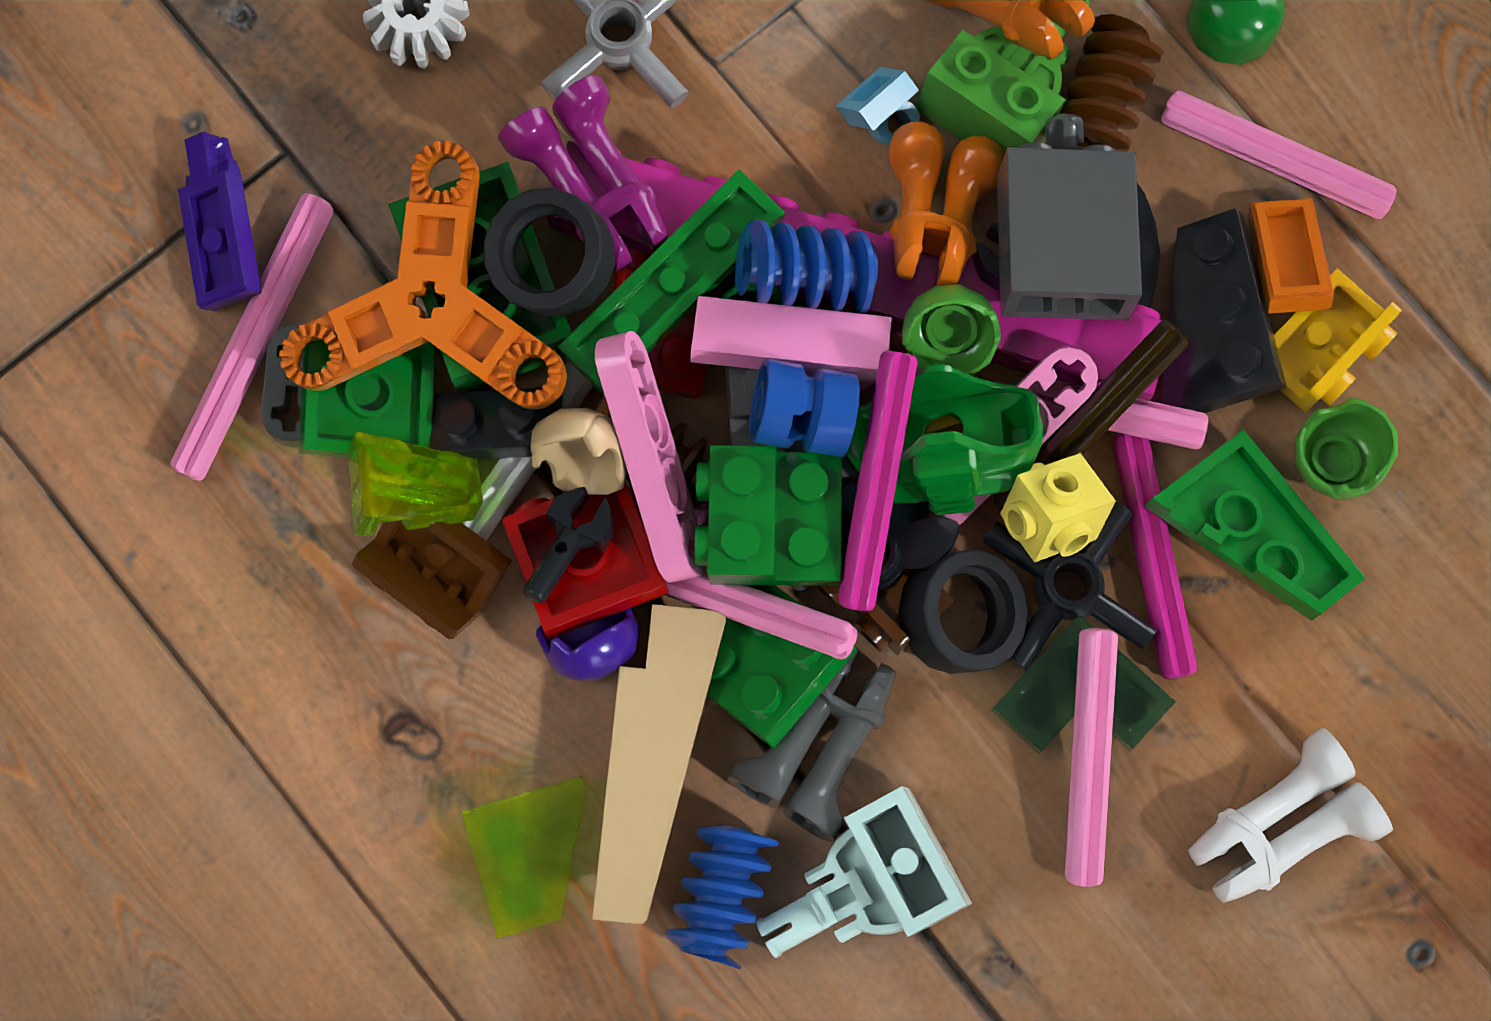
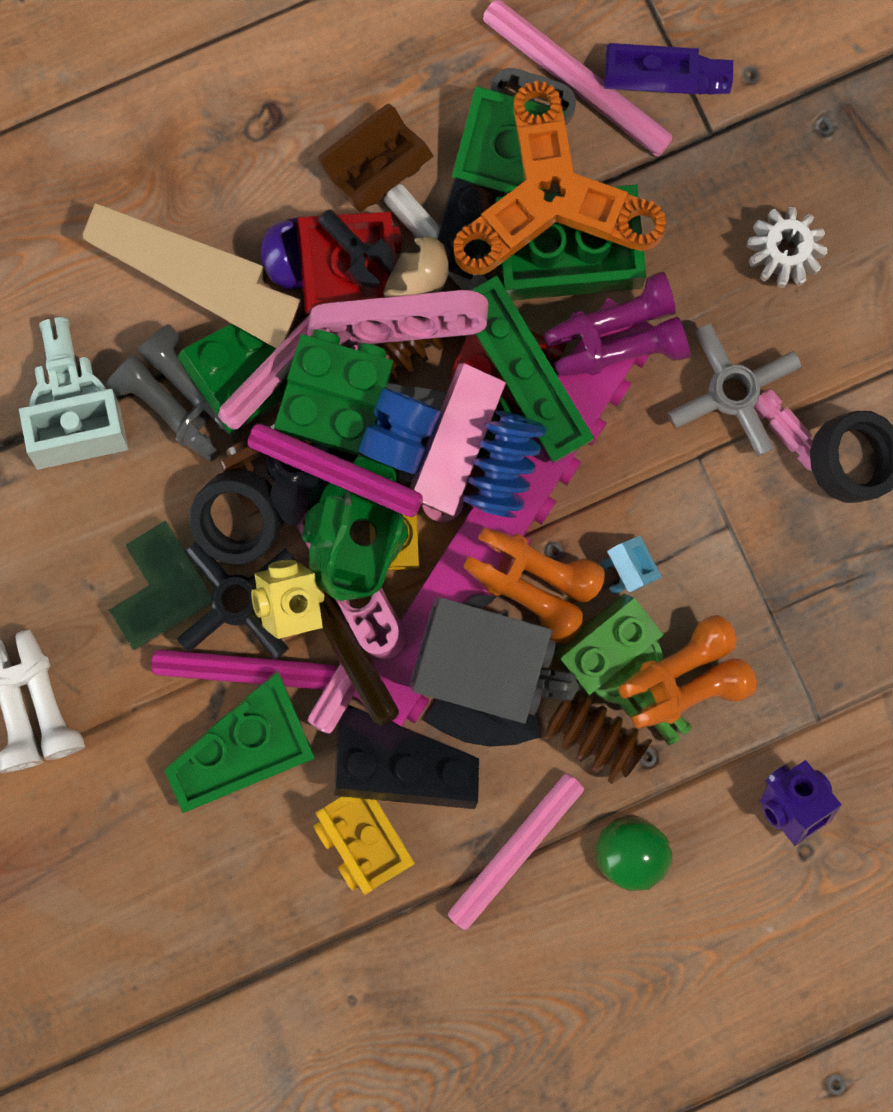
camera: 110 degrees right, 5 degrees up
(409, 484) = (429, 152): clear neon green wing -> none
(515, 219) = (556, 249): black tyre -> none
(527, 854) = (157, 175): clear neon green wing -> none
(720, 893) = (89, 299): blue piece -> none
(951, 328) = (432, 556): bright green hair -> none
(1091, 757) = (111, 577): bright pink axle -> none
(1290, 256) = (433, 832): orange tile -> none
(1346, 449) = (277, 825): bright green hair -> none

